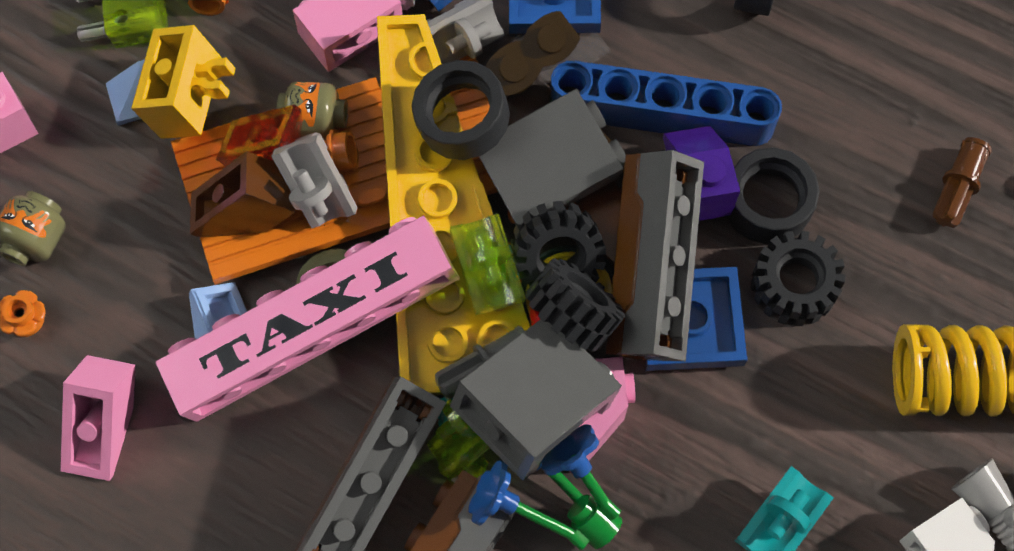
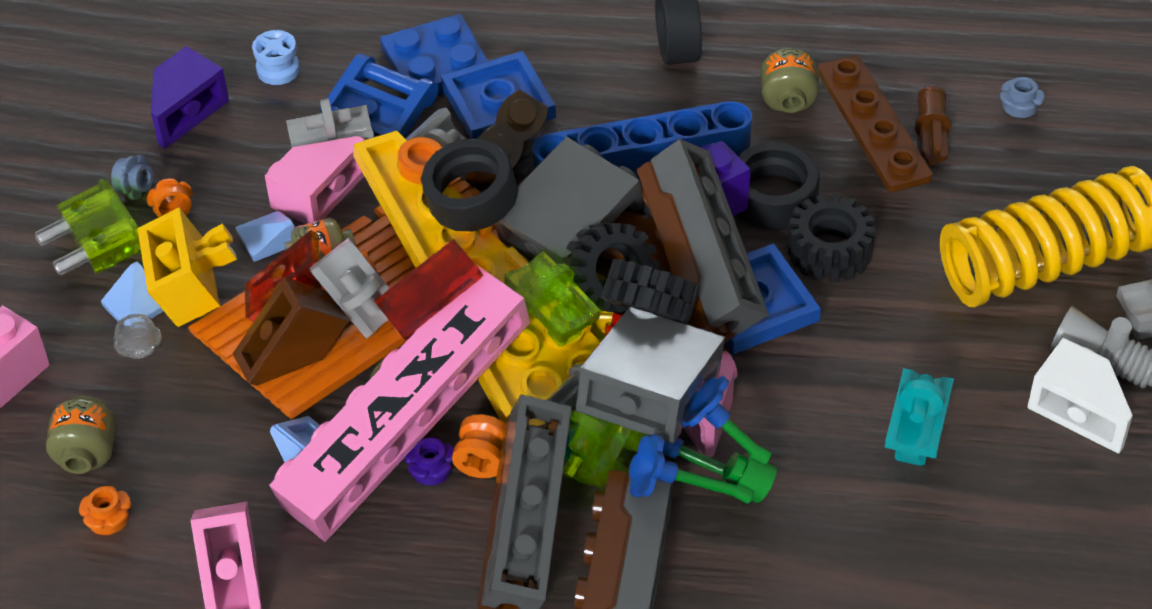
camera: 20 degrees left, 20 degrees down
(113, 128) = (136, 336): none -> clear plate
(278, 65) = (265, 235): none -> light blue slope
(320, 389) = (432, 470): none -> dark purple plate
(365, 384) = (479, 446): none -> orange wheel
(373, 219) = (428, 288): none -> clear red panel
(428, 53) = (414, 155): none -> orange tile
(844, 75) = (789, 80): none -> olive head
(896, 171) = (874, 124): none -> reddish brown bracket

